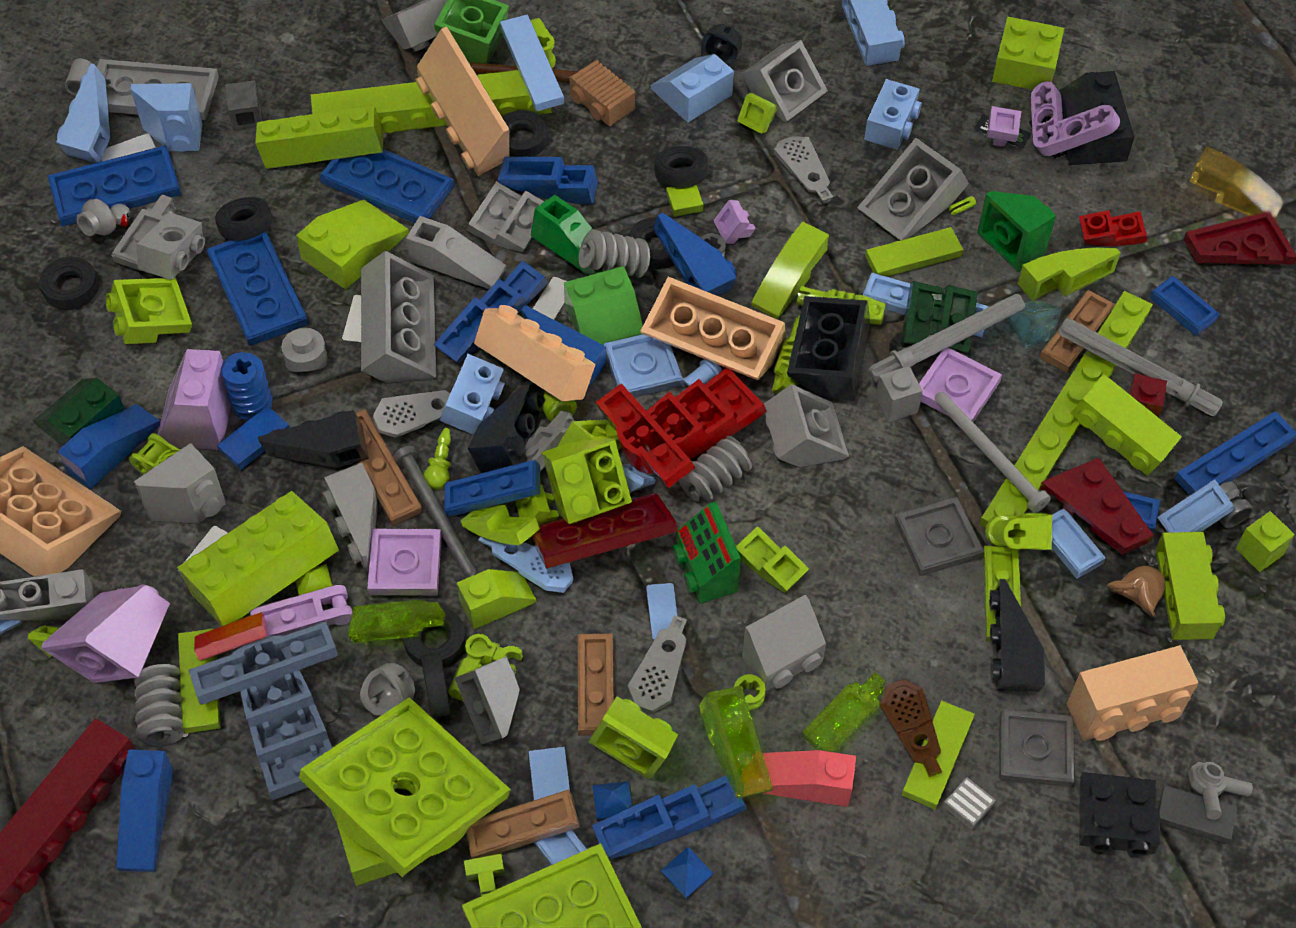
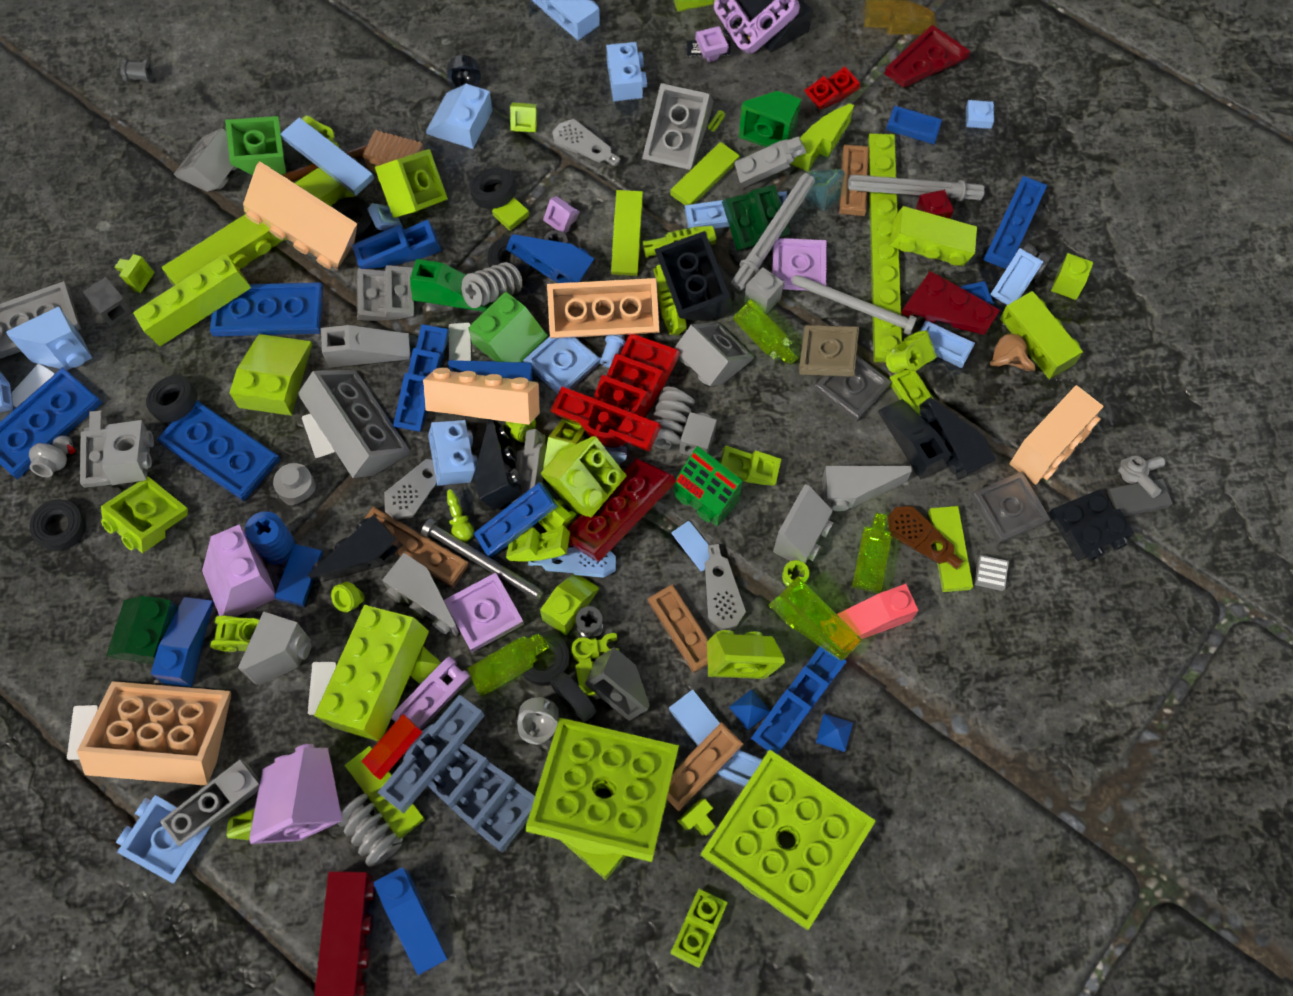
camera: 30 degrees left, 10 degrees up
(283, 479) = (346, 597): none -> lime tile
(285, 90) = (135, 272): none -> lime tile
(502, 625) = (583, 617): none -> dark grey bush
(553, 144) = (382, 217): none -> light blue tile
(599, 123) = (411, 183): none -> lime slope
(737, 500) = (697, 432): none -> light grey brick
(786, 79) = (528, 79): light grey slope -> none
(874, 436) = (765, 332): none -> clear neon green hinge
(879, 637) = (853, 485): none -> light grey slope
(933, 487) = (829, 350): none -> dark tan tile
(970, 621) = (916, 438): none -> black slope
(989, 267) = (768, 161): none -> light grey hinge
(1269, 328) = (979, 114): none -> light blue plate

